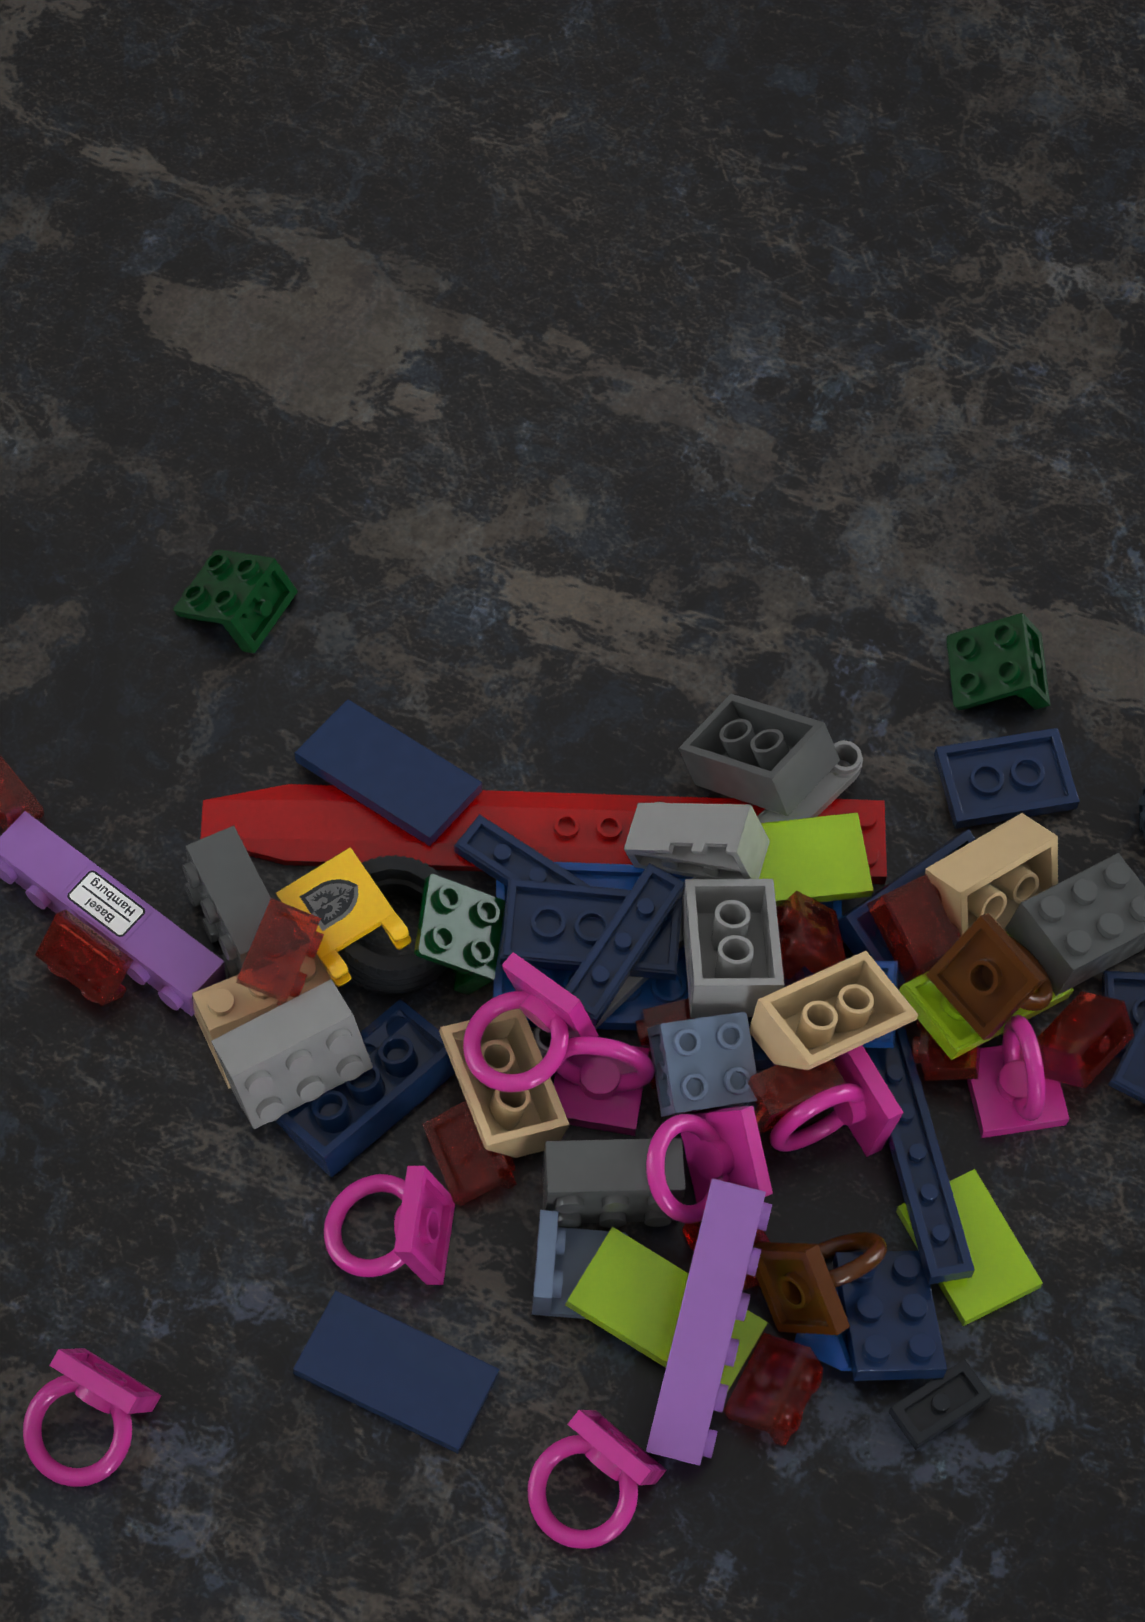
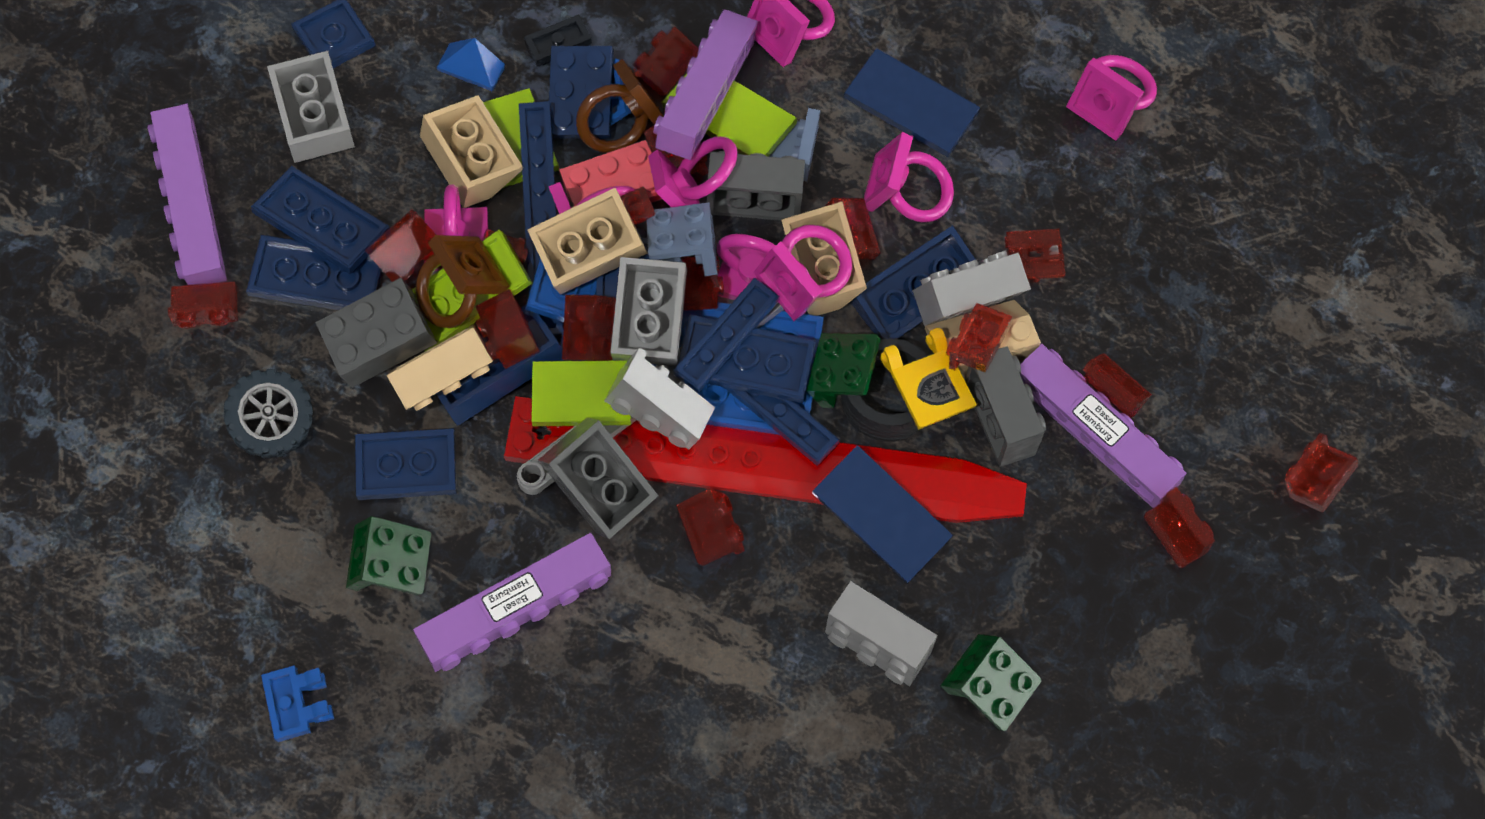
camera: 170 degrees left, 5 degrees up
(213, 1128) = (1046, 242): none -> clear red piece
(378, 616) = (879, 634): none -> light grey brick
(603, 739) = (710, 526): none -> clear red bracket
(824, 1190) = (617, 168): none -> coral plate
(835, 624) = (513, 602): none -> medium lavender brick
(1027, 1196) = (470, 150): none -> tan slope
(1058, 1356) = (472, 63): none -> blue slope
(1073, 495) = (287, 705): none -> blue plate

